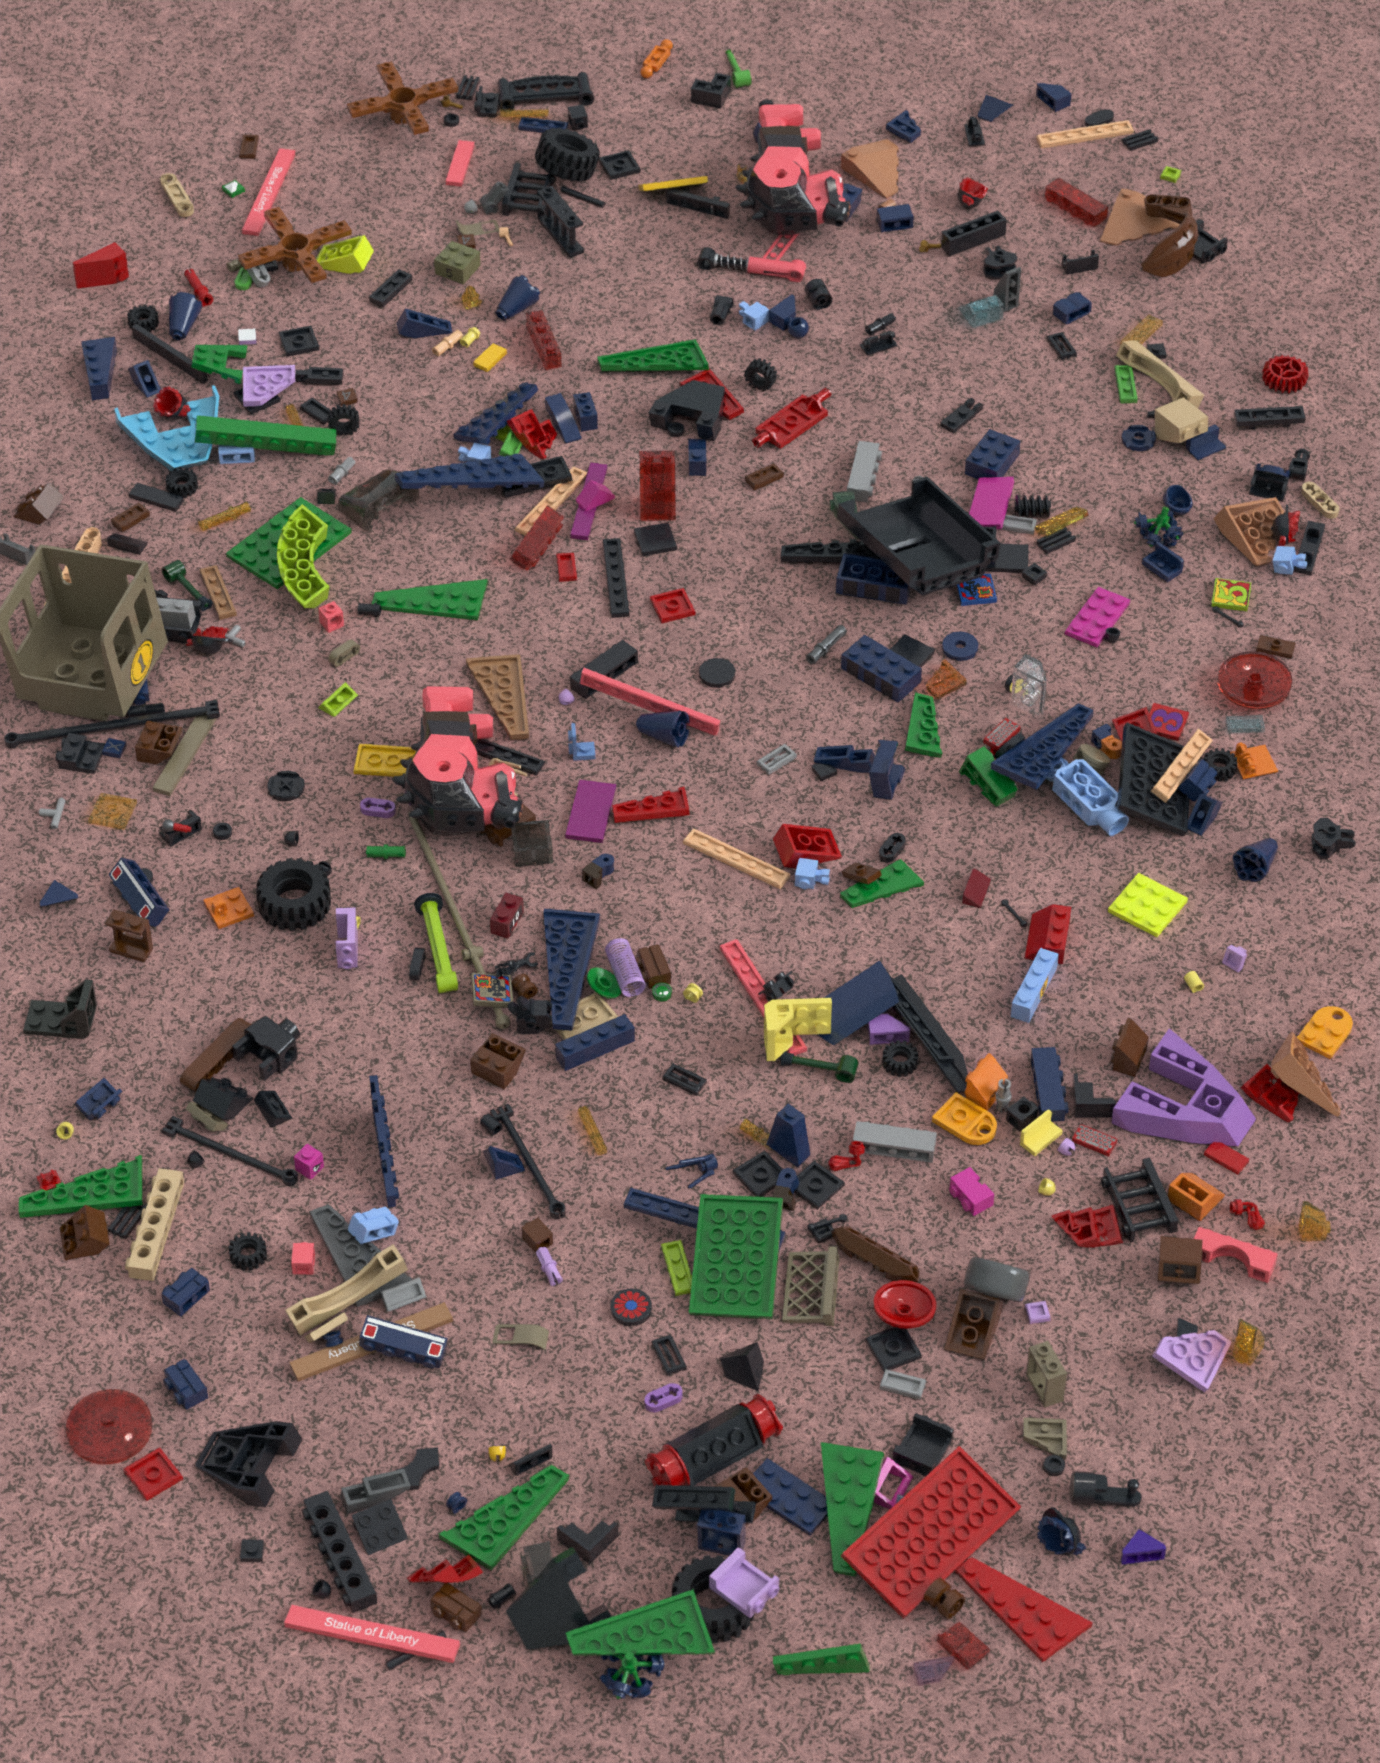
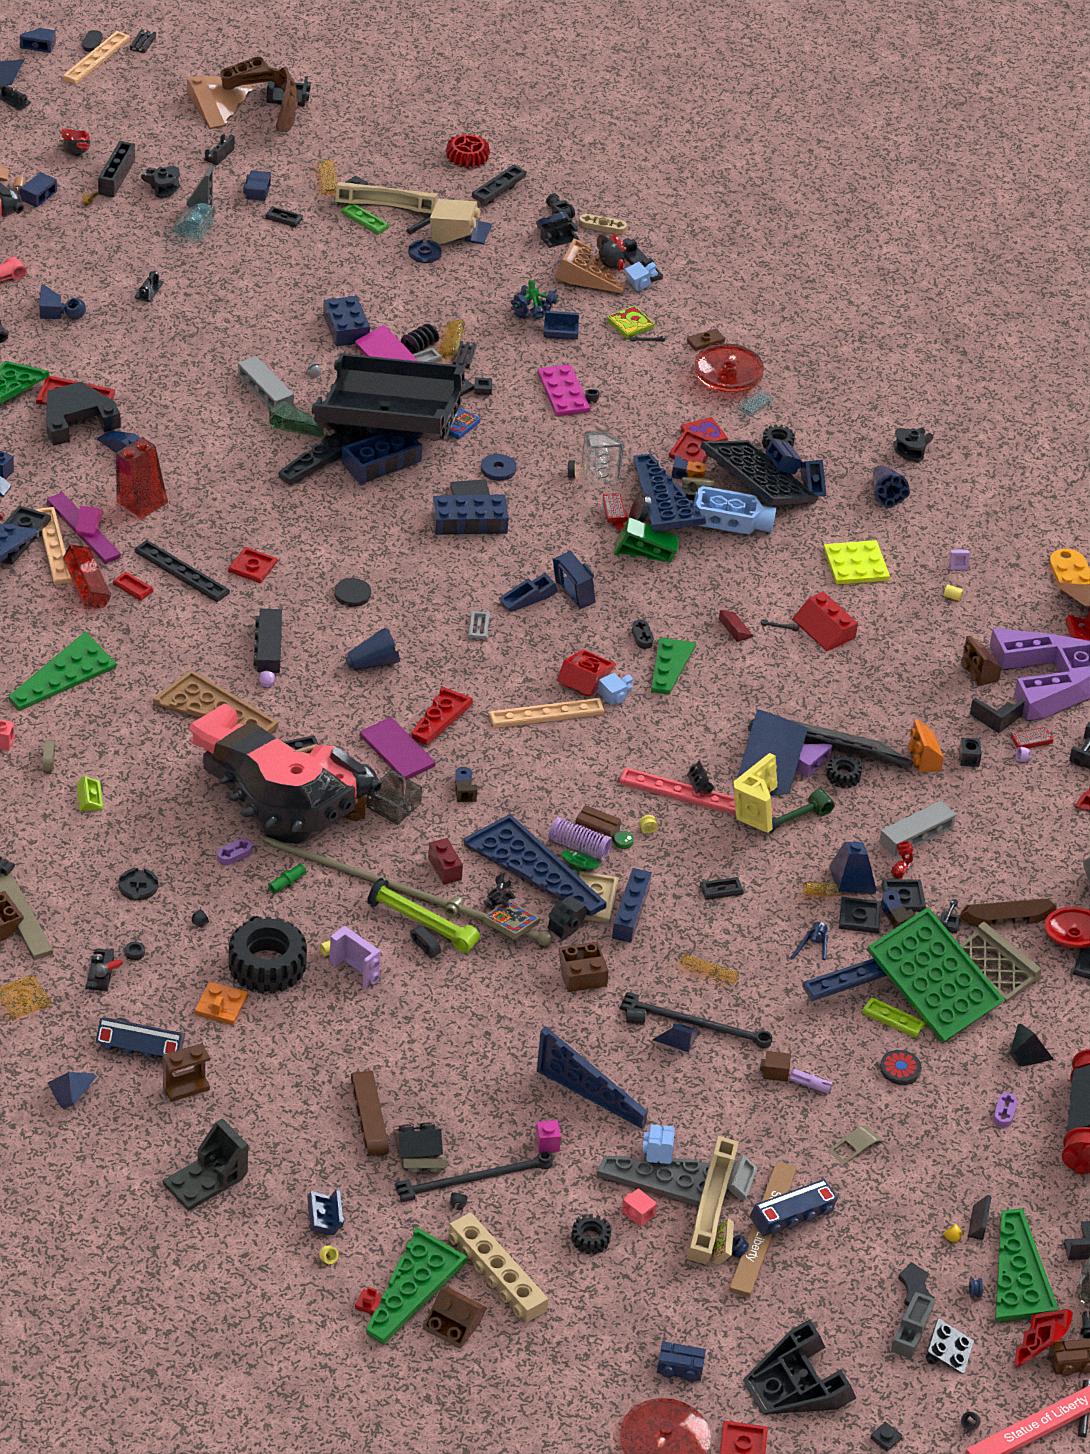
camera: 50 degrees left, 5 degrees down
(131, 1226) = (468, 1266): black tile -> none
(185, 1291) = (588, 1297): dark blue brick -> none
(271, 1043) = (406, 1073): black piece -> none
(272, 1108) = (460, 1122): black slope -> none
(323, 1507) = (948, 1384): black brick -> none
(370, 609) = (21, 711): black pin -> none
(381, 760) = (196, 811): yellow tile -> none
(524, 986) = (527, 902): reddish brown wheel -> none
(581, 750) = (328, 706): medium blue bracket -> none
(646, 700) = (337, 640): coral tile -> none
(655, 539) = (173, 525): black tile -> none
(674, 1369) = (967, 1082): black tile -> none
(675, 429) = (78, 436): black tile -> none
(754, 315) = (27, 318): light blue brick -> none
(763, 368) = (93, 350): black tyre -> none
(764, 476) = (195, 431): reddish brown plate -> none
(792, 420) = (161, 378): red plate -> none
(818, 294) = (56, 275): black wheel -> none
(822, 648) = (406, 527): dark grey pin -> none
(824, 771) = (523, 612): black tile -> none
(861, 873) = (650, 663): reddish brown plate -> none
(880, 324) = (130, 273): black axle -> none
(923, 728) = (550, 537): green wing -> none
(945, 680) = (521, 496): clear orange wing -> none
(961, 416) = (279, 307): black hinge -> none
(966, 1120) = (940, 782): light orange plate -> none
(970, 1192) = (1008, 825): dark pink brick -> none
(1003, 1095) = (949, 745): light grey pin -> none
(1034, 985) = (864, 661): light blue brick -> none
(1039, 1134) = (997, 758): light yellow panel -> none
(1047, 1082) = (958, 720): dark blue brick -> none
(1047, 1187) = (1044, 787): light yellow hinge -> none
(1076, 202) = (159, 108): clear red brick -> none
(1170, 174) = (198, 54): lime tile -> none
(1177, 500) = (513, 277): dark blue hair -> none
(1181, 765) = (761, 453): light nougat tile -> none
(1253, 761) = (797, 422): orange hinge -> none

